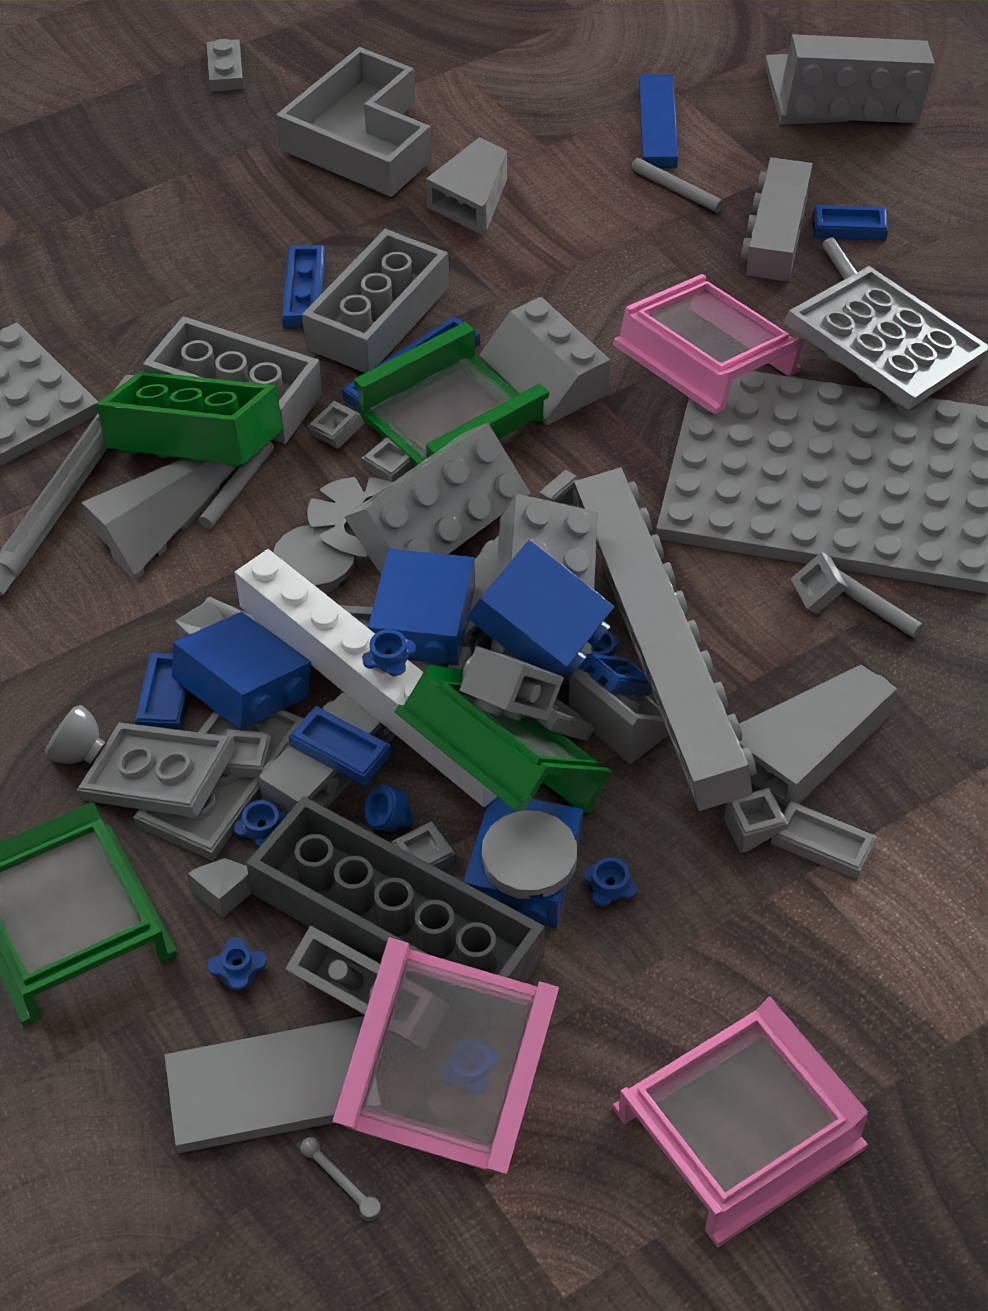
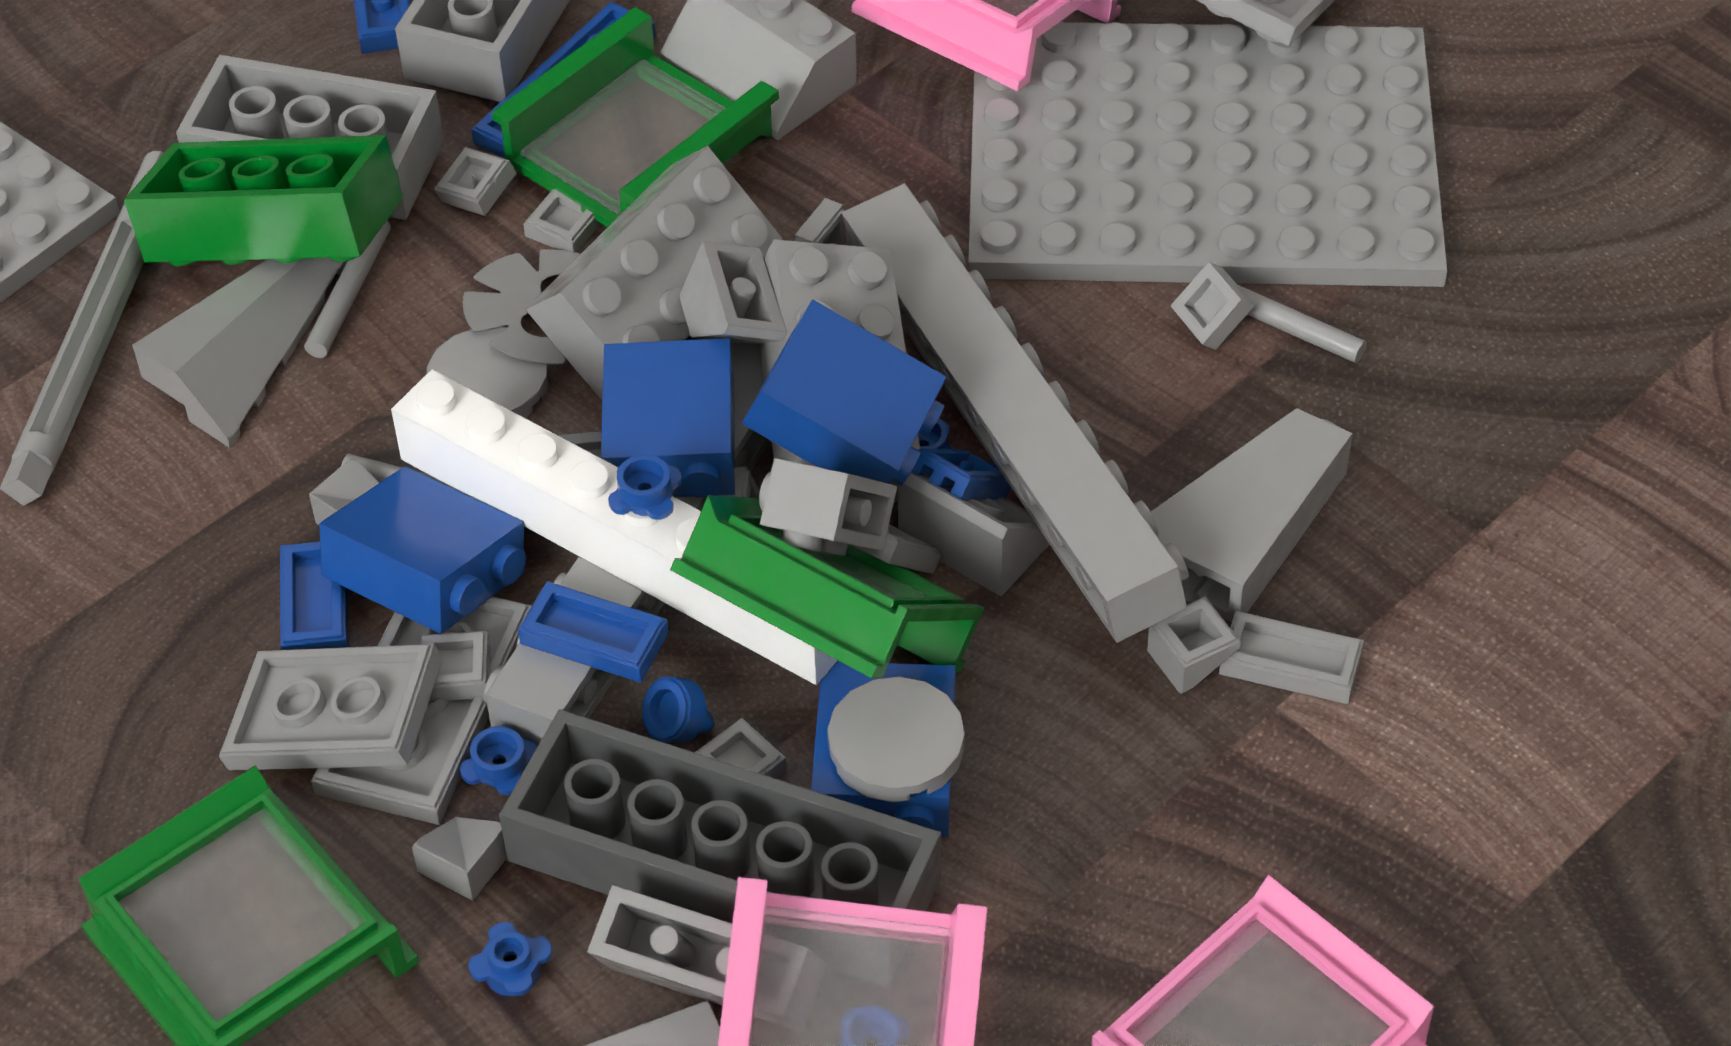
camera: 10 degrees left, 0 degrees up
(75, 739) = (202, 684): light grey brick -> none
(481, 527) = (731, 296): none -> light grey slope
(610, 870) = (1014, 745): blue plate -> none

